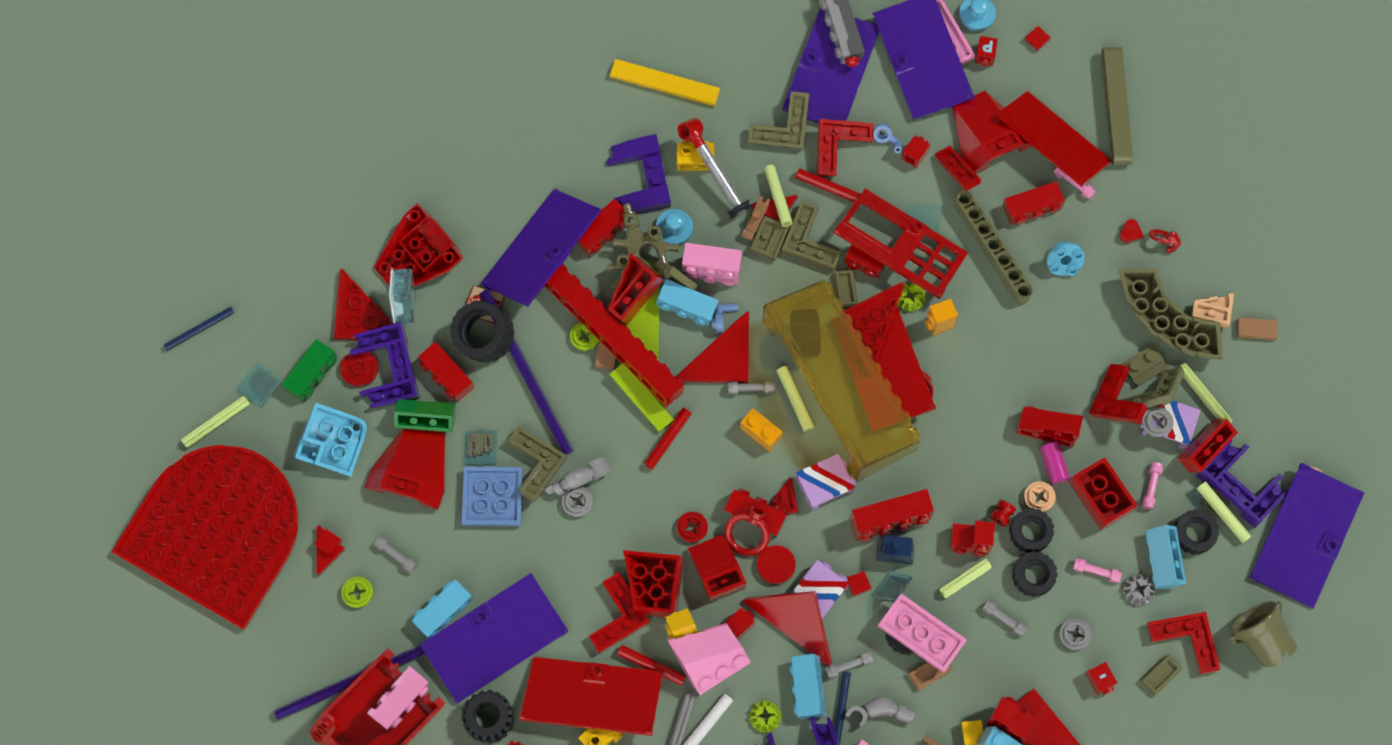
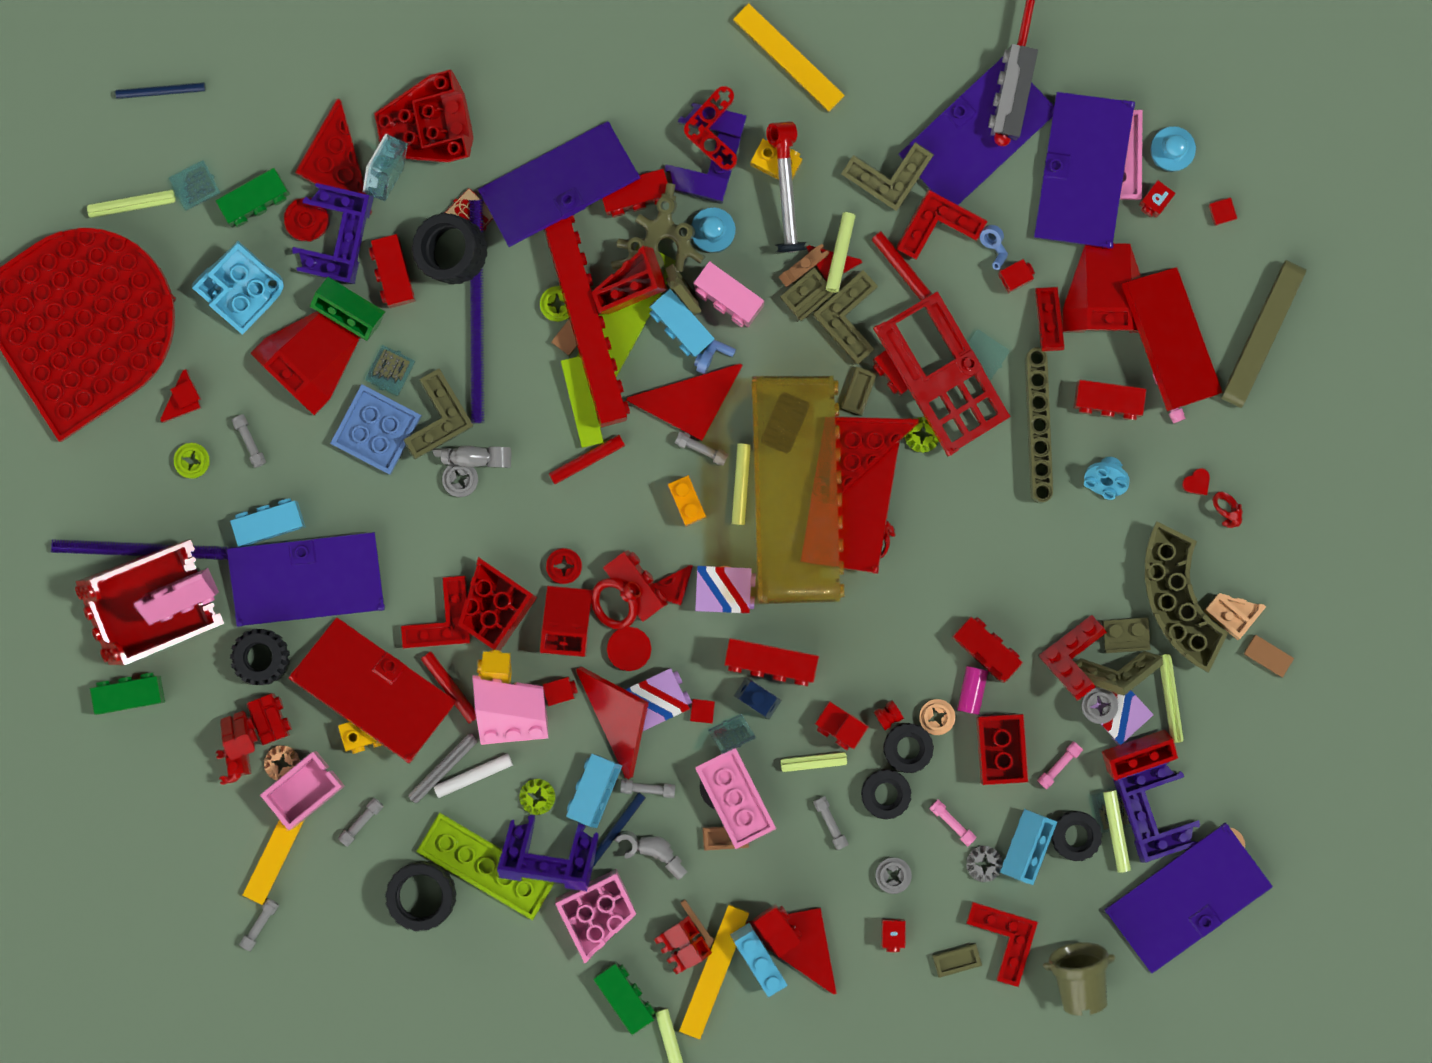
camera: 30 degrees right, 15 degrees up
(632, 159) = (705, 133): none -> red beam
(941, 317) = (938, 476): light orange brick -> none

